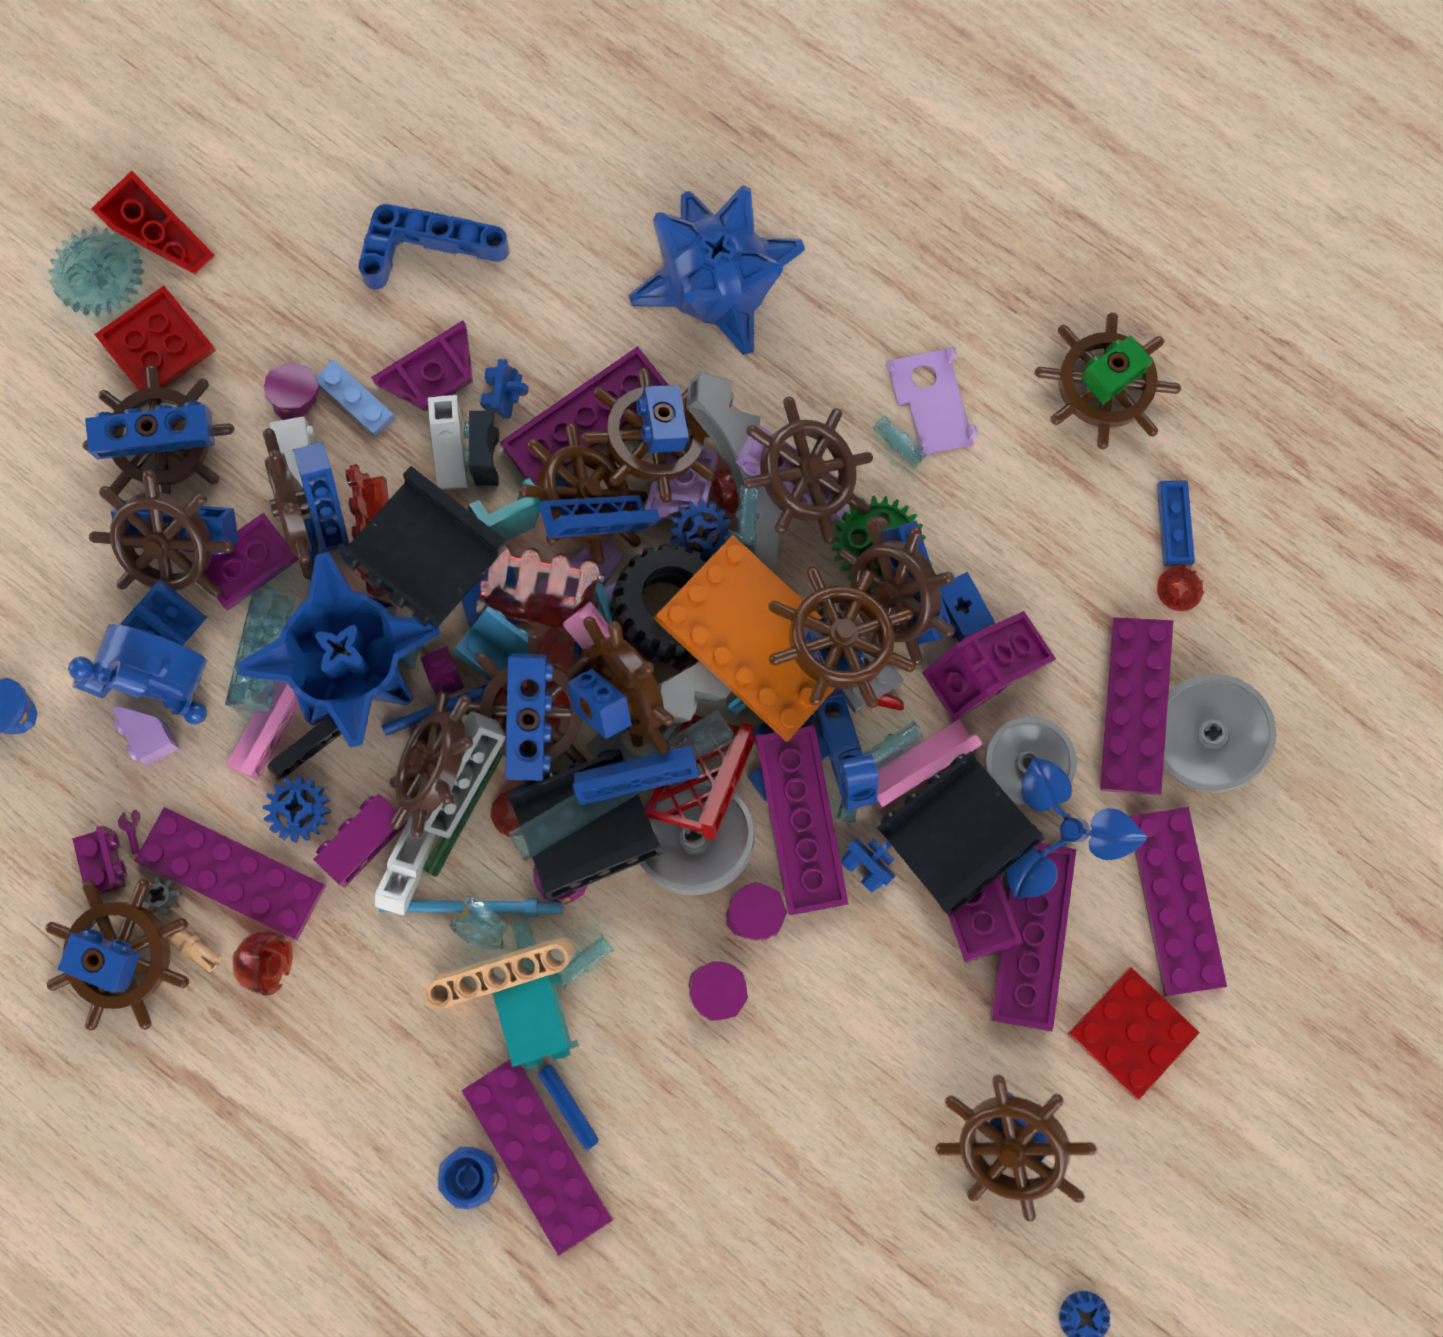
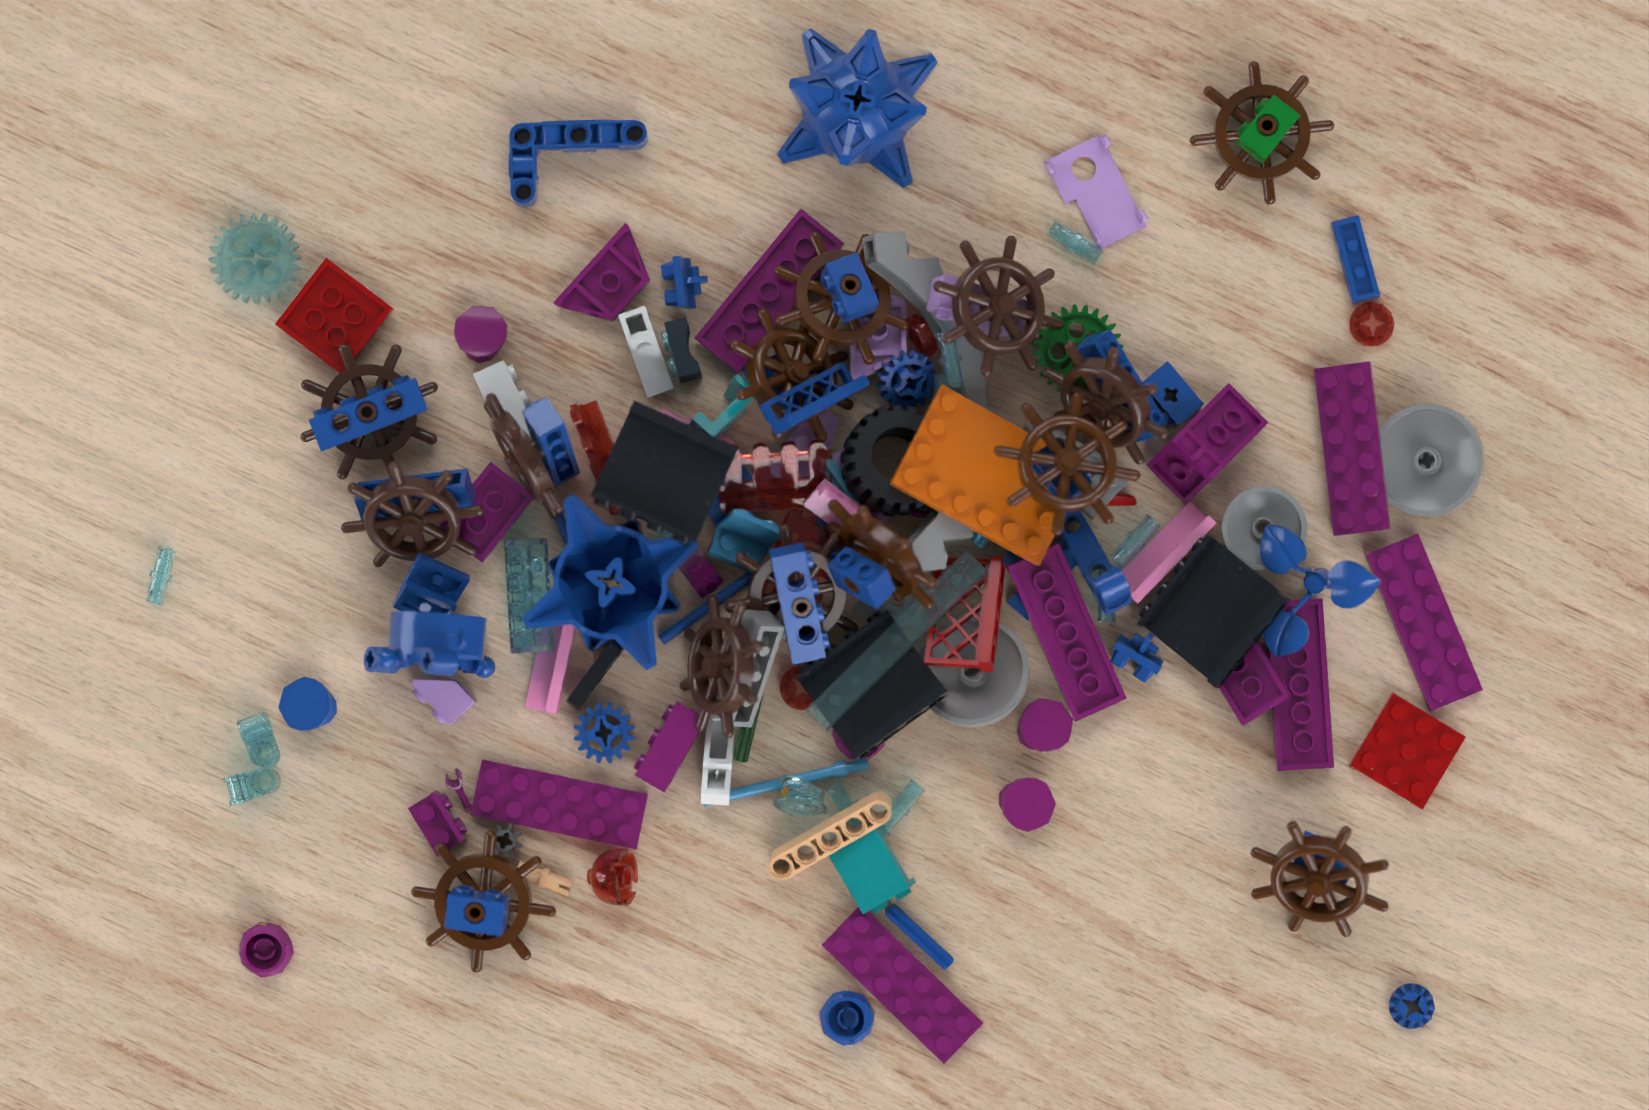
camera: 10 degrees left, 10 degrees up
(146, 220) = (287, 195): red wedge -> none
(354, 398) = (541, 325): light blue plate -> none
(635, 775) = (908, 631): blue fence -> none

